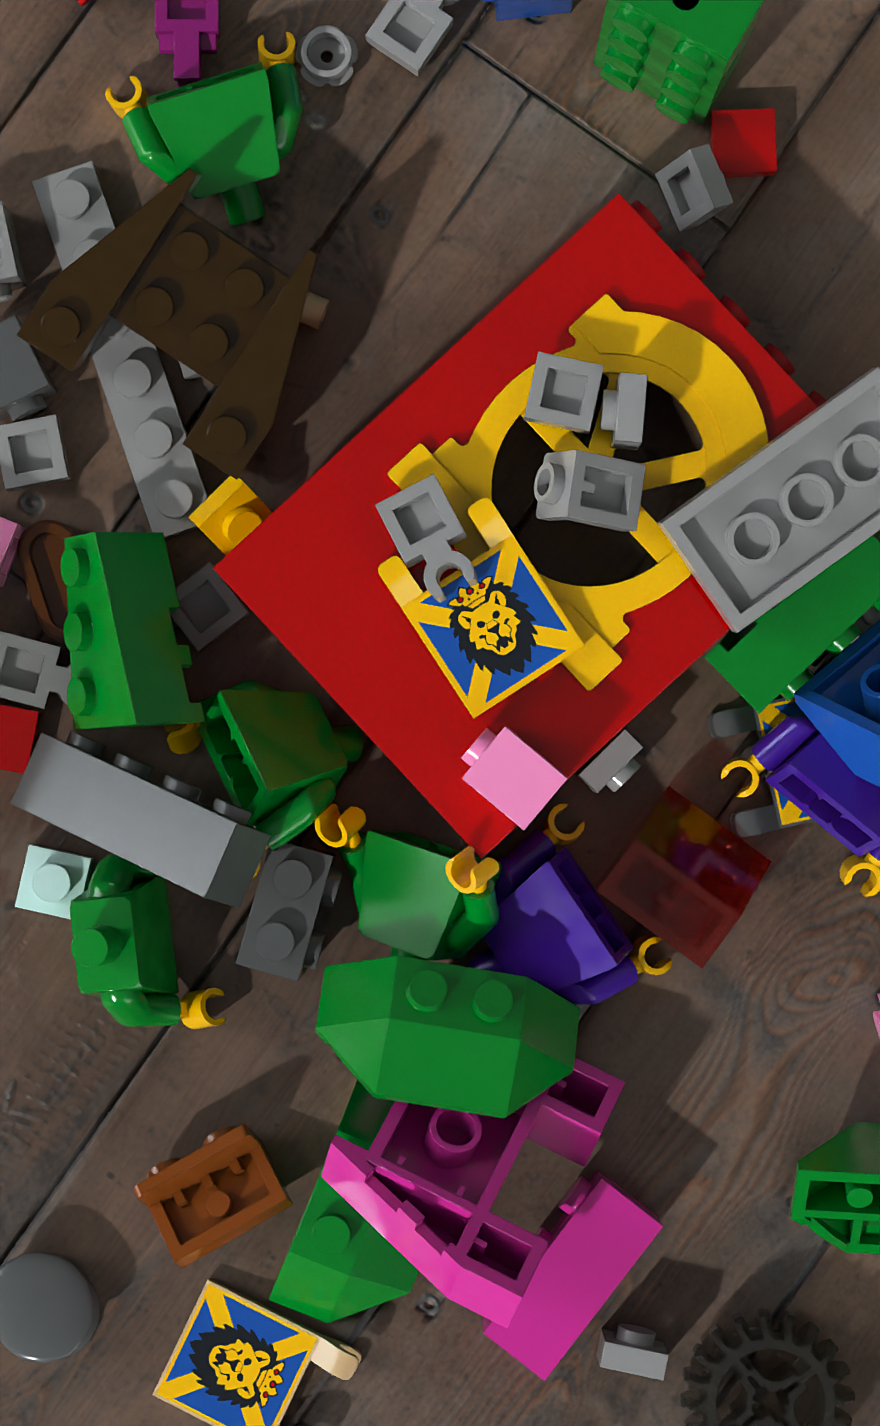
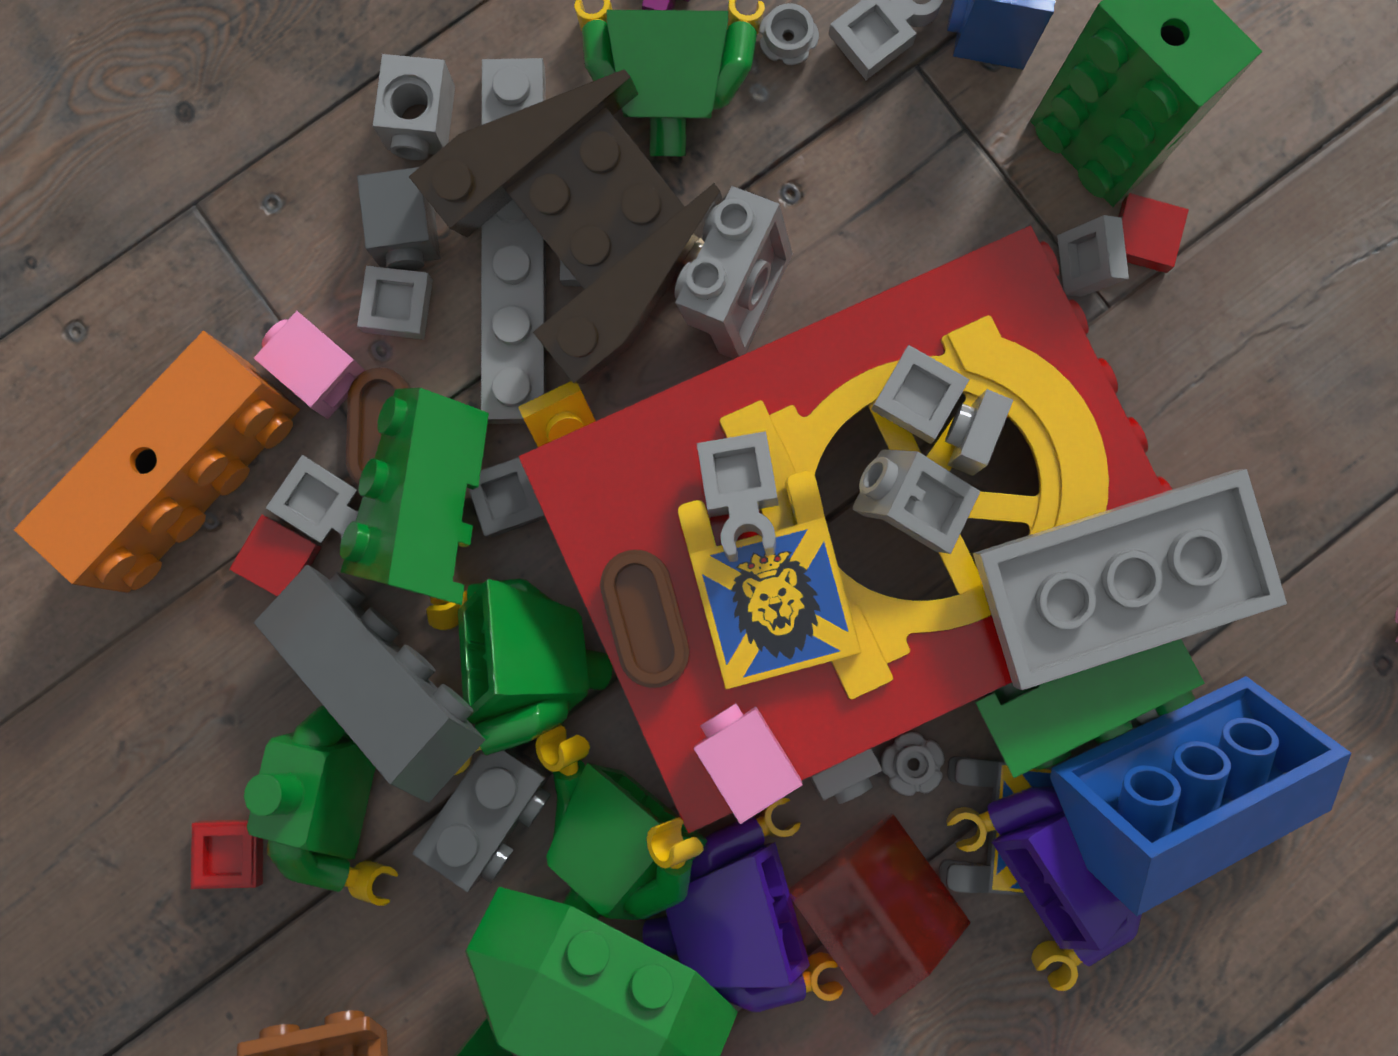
camera: 20 degrees right, 5 degrees down
(52, 880) = (272, 707): light aqua plate -> none
(56, 1028) = (225, 855): none -> red tile
(354, 321) = (735, 270): none -> light grey plate
(379, 678) = (645, 618): none -> reddish brown tile
(655, 733) = (895, 761): none -> light grey plate

